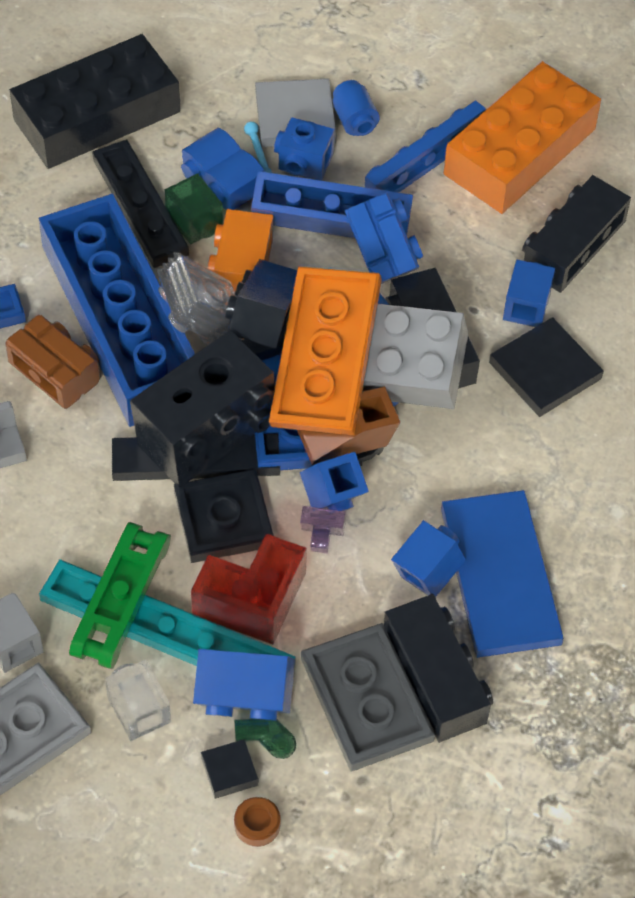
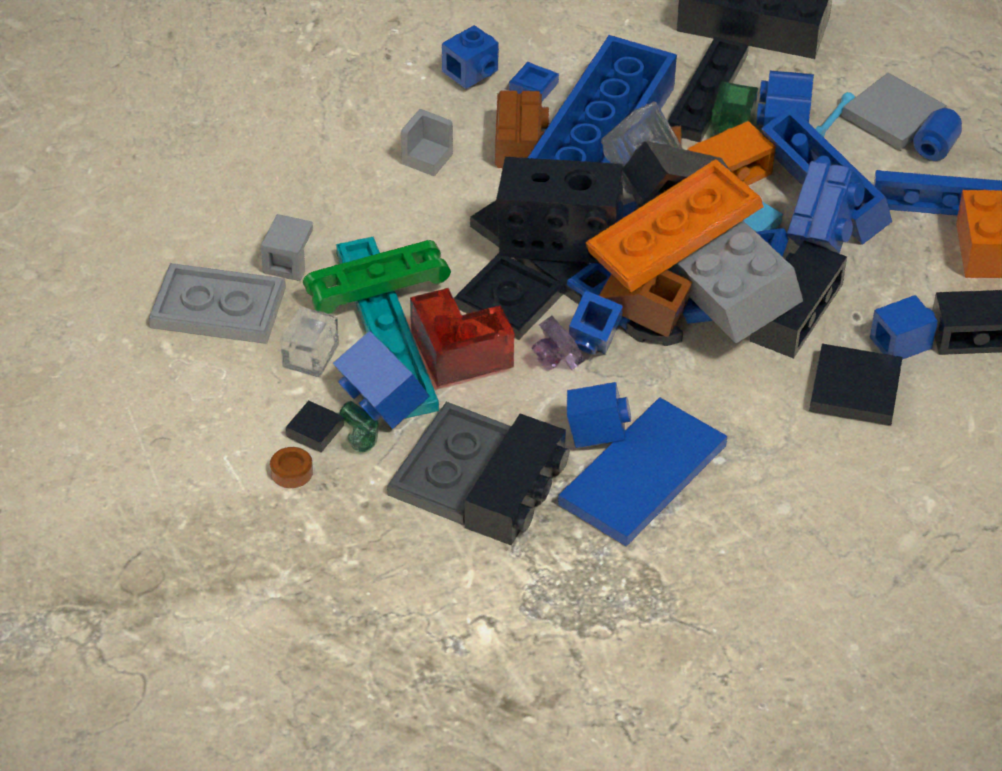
camera: 50 degrees right, 10 degrees down
(305, 148) = (861, 130): blue brick -> none

